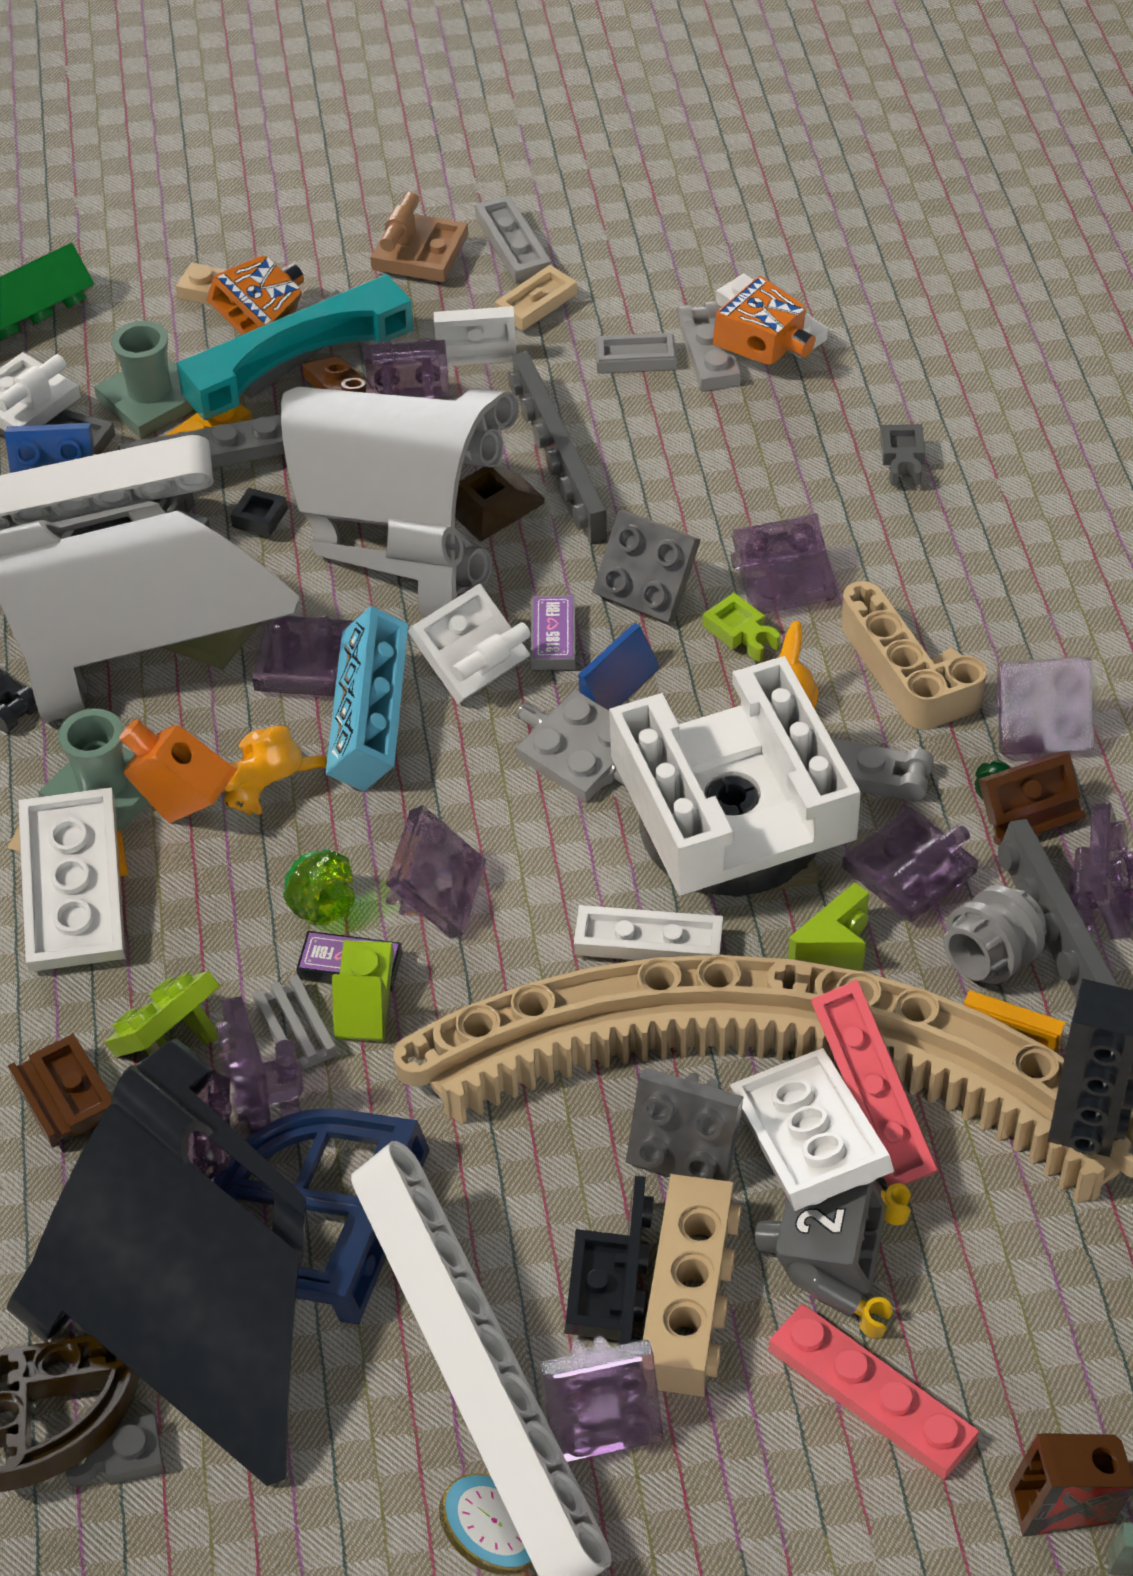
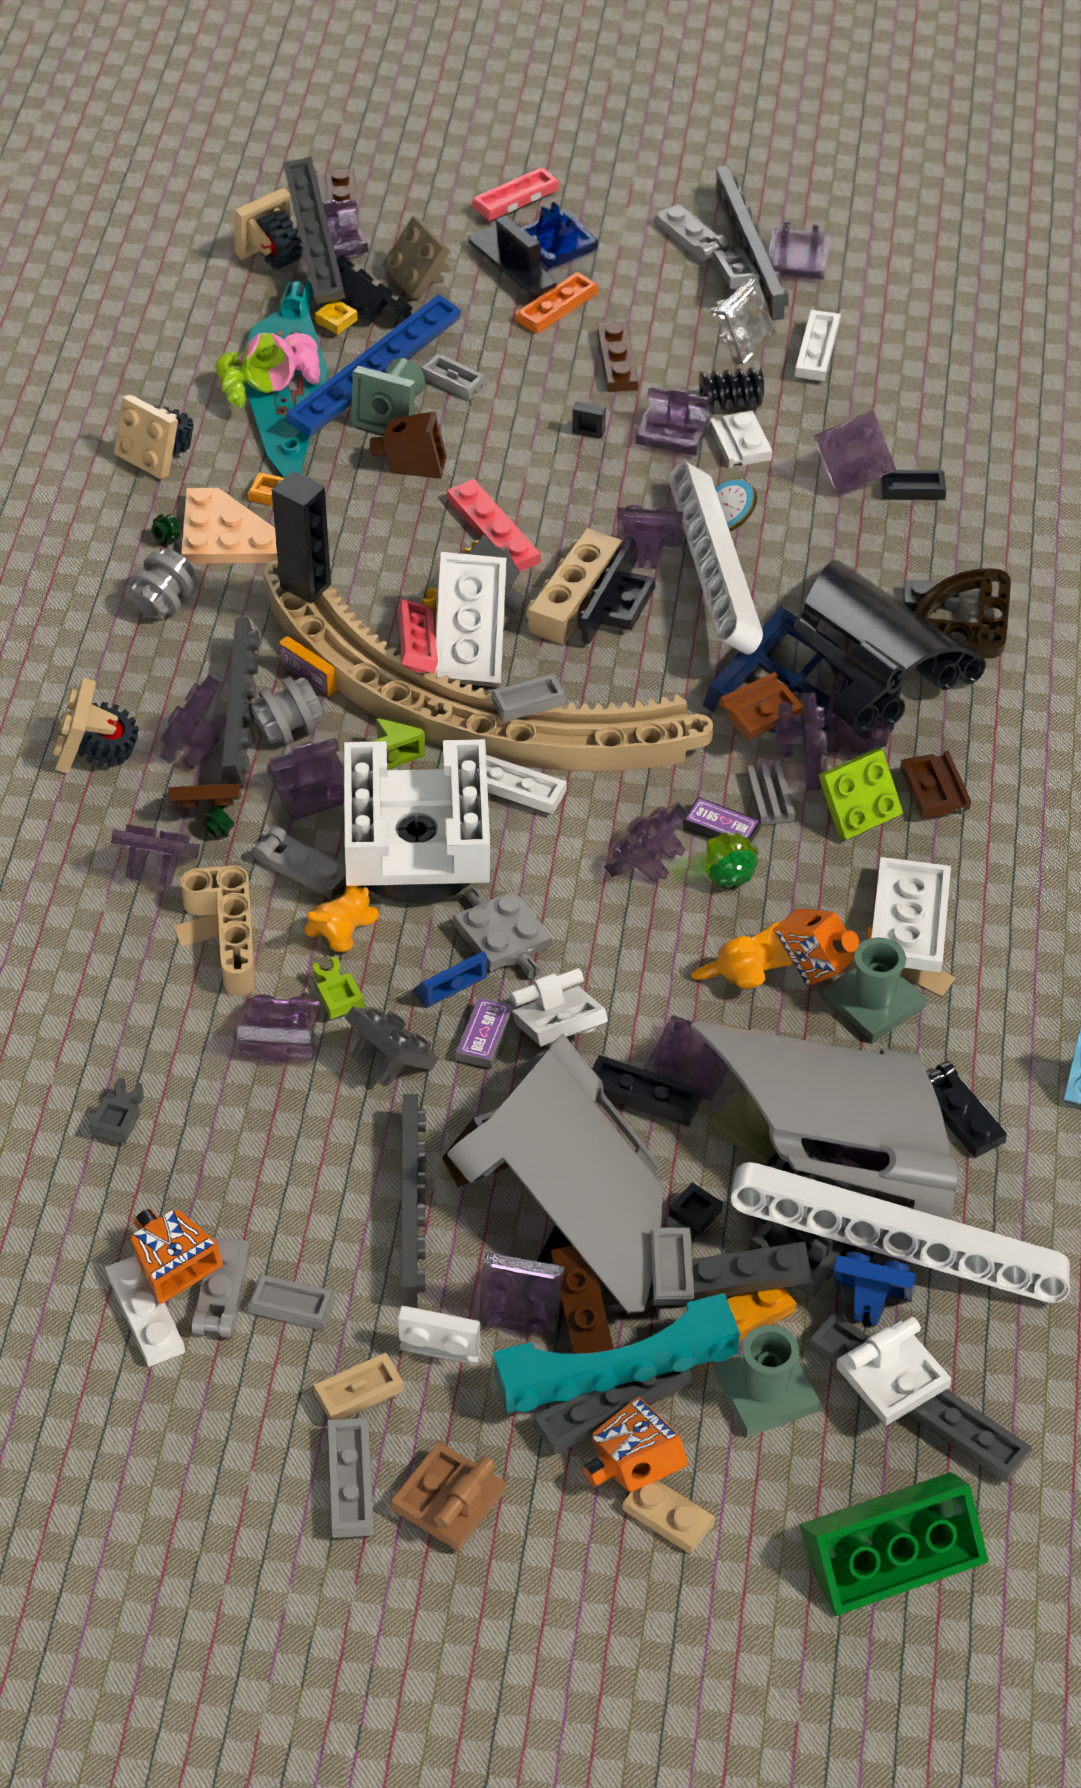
camera: 165 degrees left, 0 degrees up
(262, 417) = (671, 1266): none -> light grey tile
(331, 1100) = (756, 705): none -> dark orange plate
(350, 603) = (648, 1091): none -> black plate
(362, 991) = (719, 789): lime slope -> none
(367, 699) = (654, 984): medium azure brick -> none
(666, 1018) = (528, 697): none -> light grey tile
(683, 1126) = (542, 646): flat silver plate -> none

